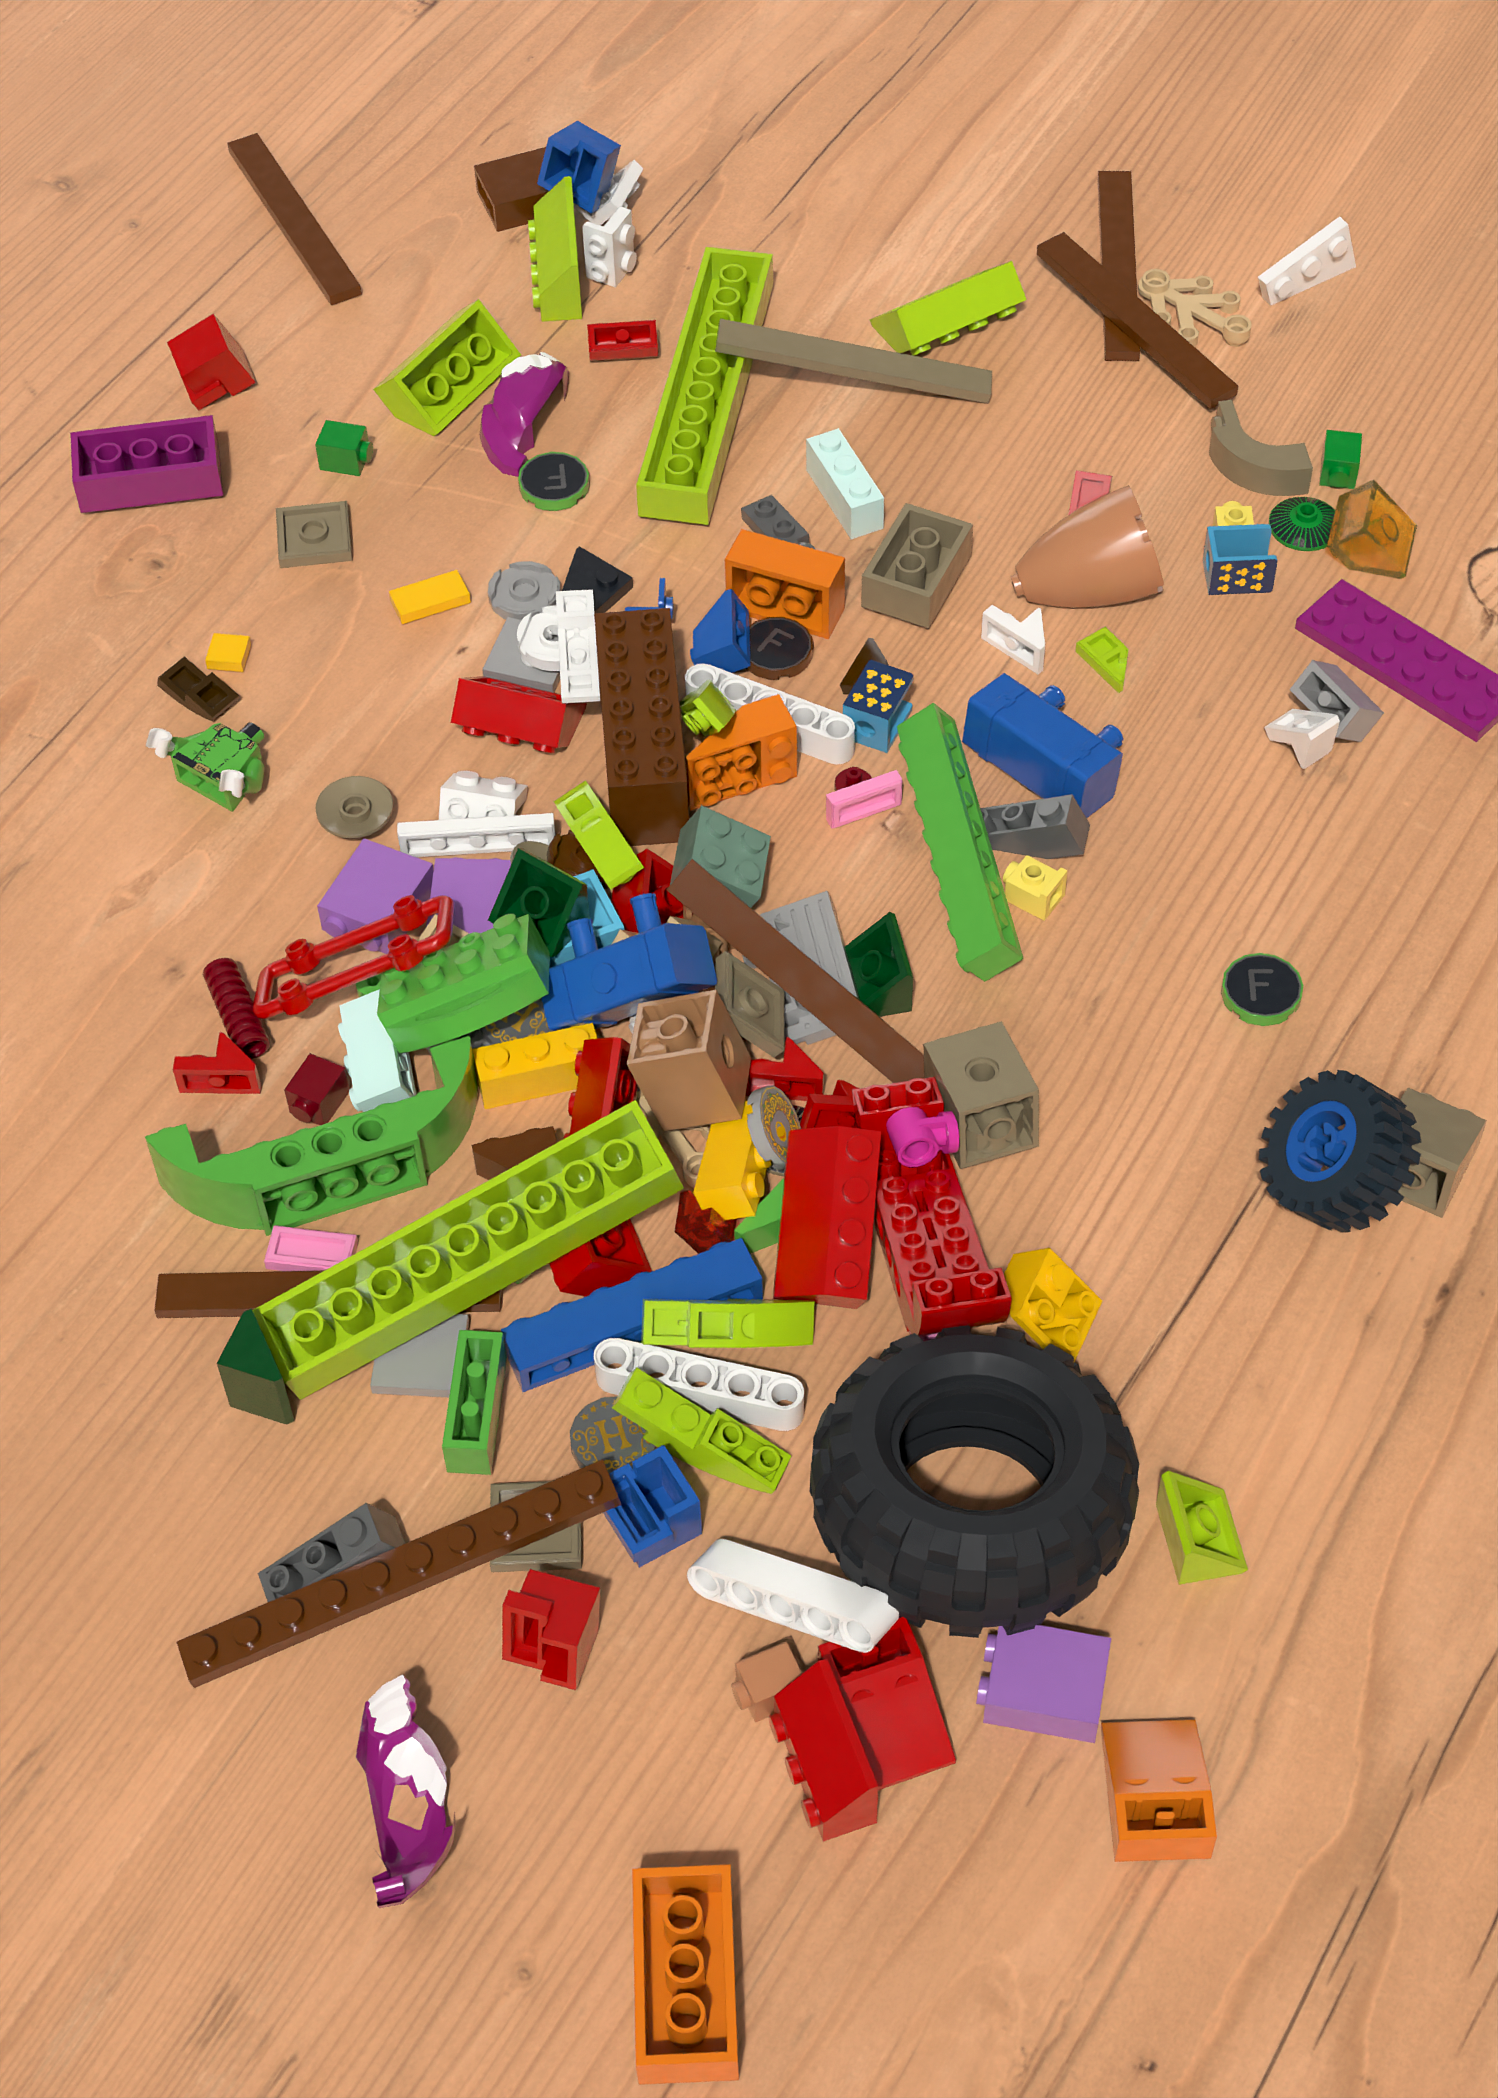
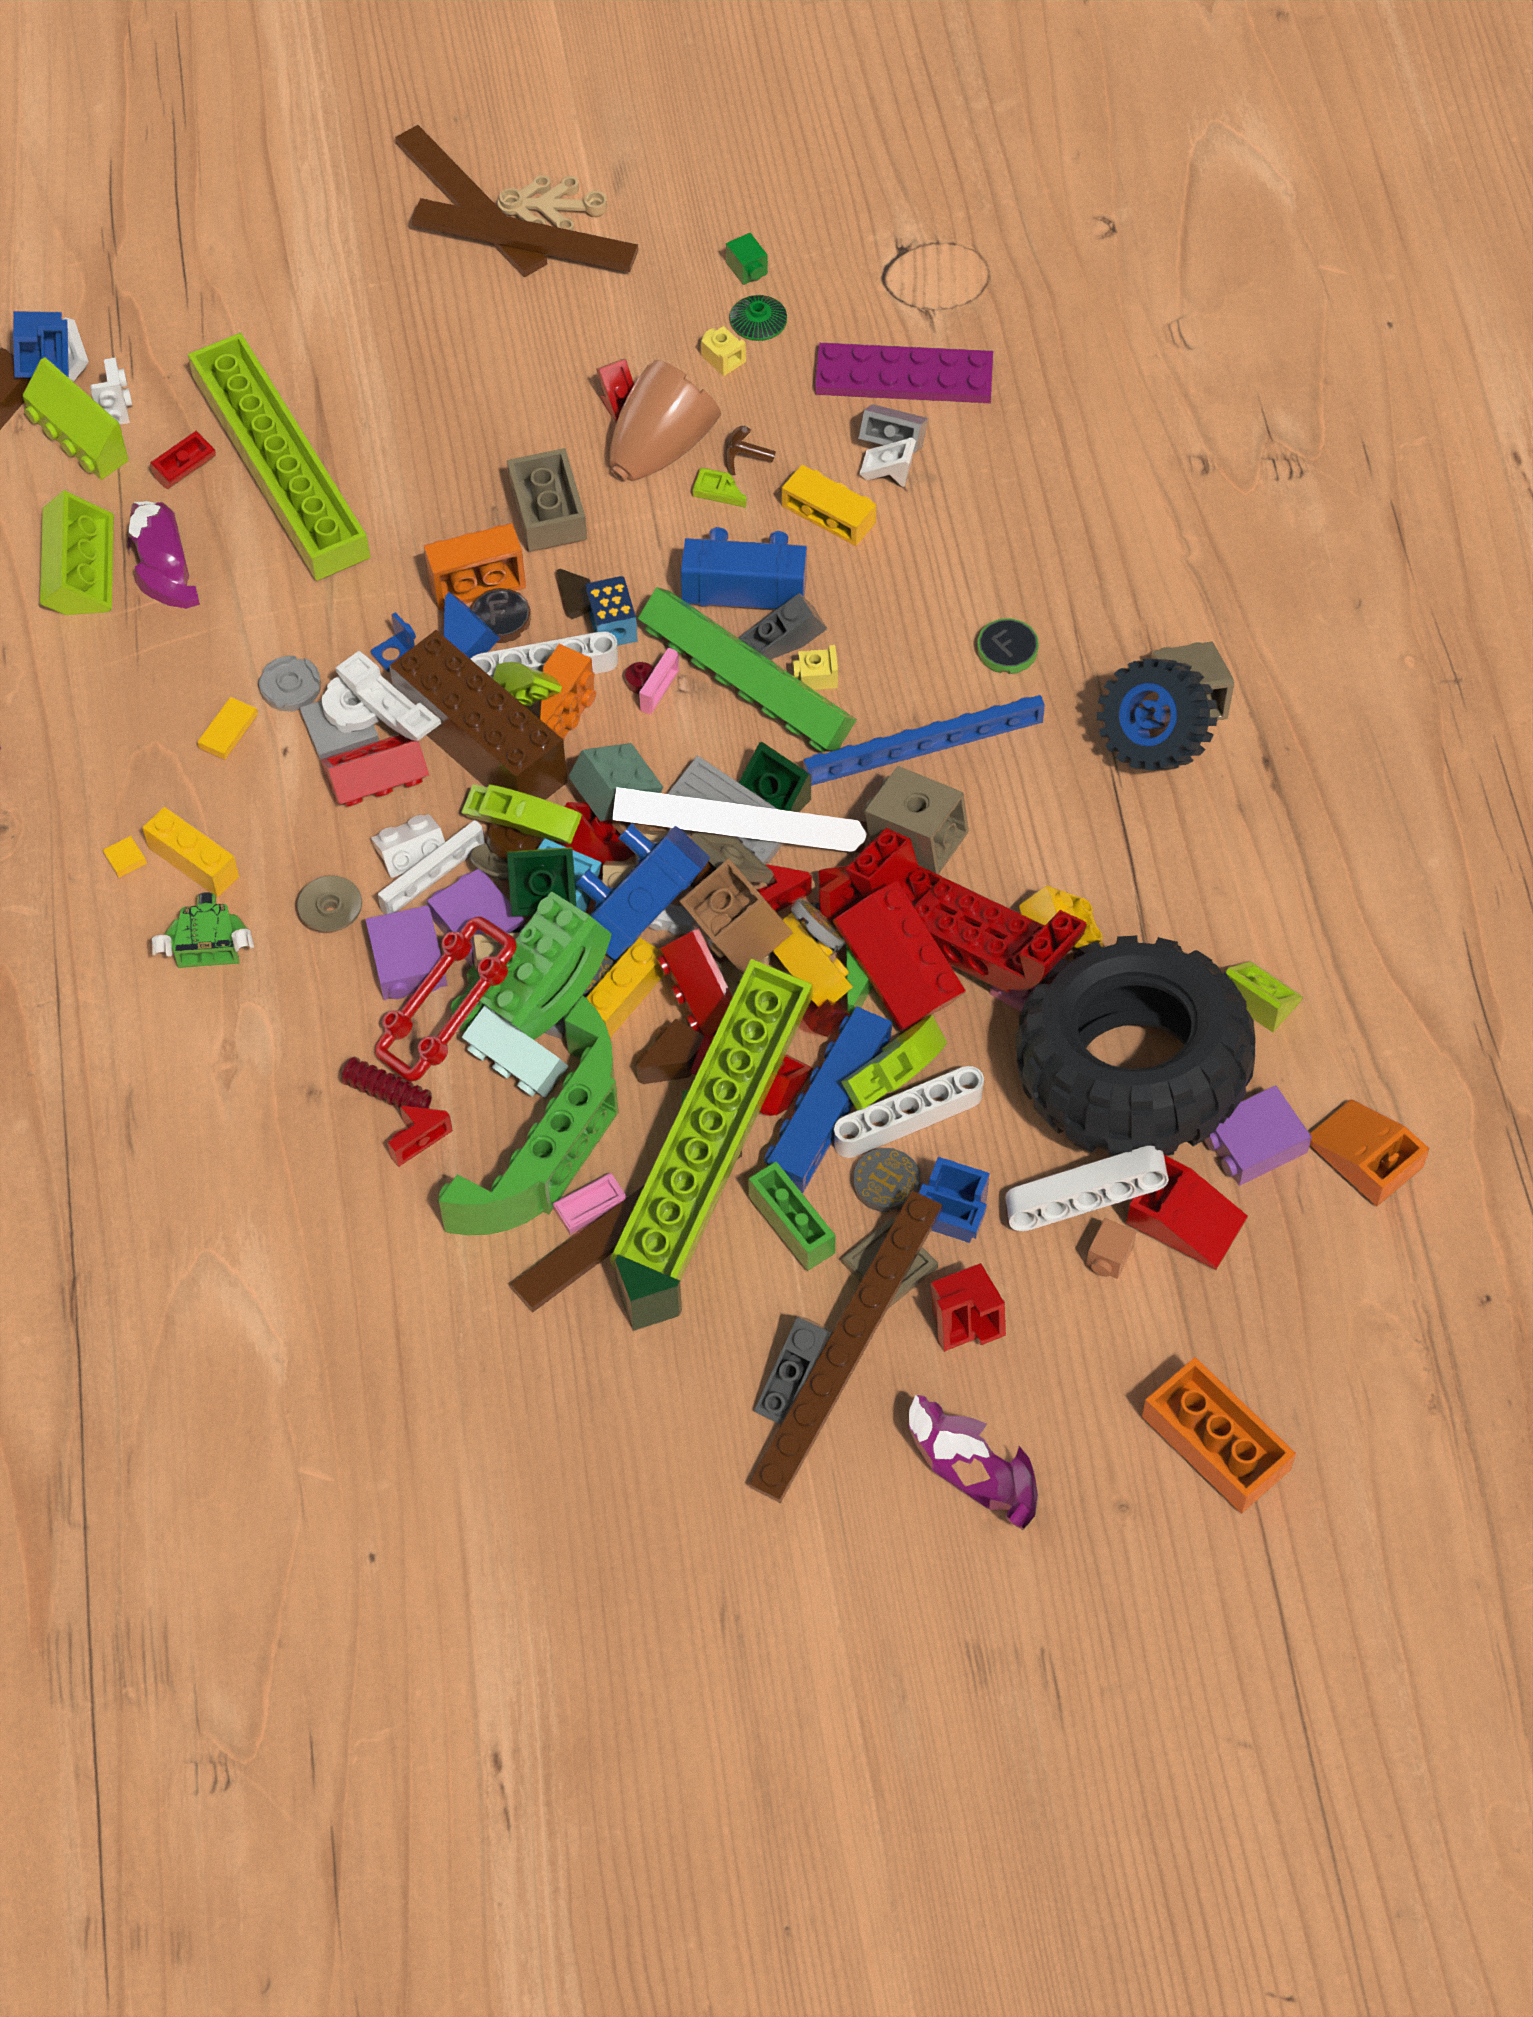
camera: 40 degrees left, 5 degrees up
(197, 692) = (133, 898): dark brown slope -> none
(281, 682) = (191, 851): none -> yellow brick
(313, 534) = (97, 735): dark tan tile -> none
(316, 1090) = (495, 1101): dark red brick -> none
(343, 448) = (60, 659): green brick -> none
(422, 1363) = (732, 1220): light grey tile -> none
(553, 481) = (232, 591): black tile -> none
(595, 574) = (330, 647): black wing -> none
(700, 1439) = (950, 1138): lime slope -> none
(773, 520) = (419, 529): dark grey plate -> none
(825, 1753) = (1182, 1260): red slope -> none
(845, 483) = (441, 471): light aqua brick -> none
(853, 361) = (367, 379): dark tan tile -> none
(919, 1137) = (915, 870): dark pink piece -> none
(950, 309) = (390, 300): lime slope -> none
(1019, 640) = (661, 510): white slope -> none
(1079, 1025) = (925, 740): none -> blue plate
(1161, 625) = (738, 446): none -> reddish brown plant
(1201, 737) = (829, 505): none -> yellow brick
(1239, 559) = (753, 380): piece -> none
(1256, 465) = (692, 295): dark tan arch -> none
(1310, 264) = (605, 127): white wing -> none
(1372, 532) = (810, 299): clear yellow slope -> none

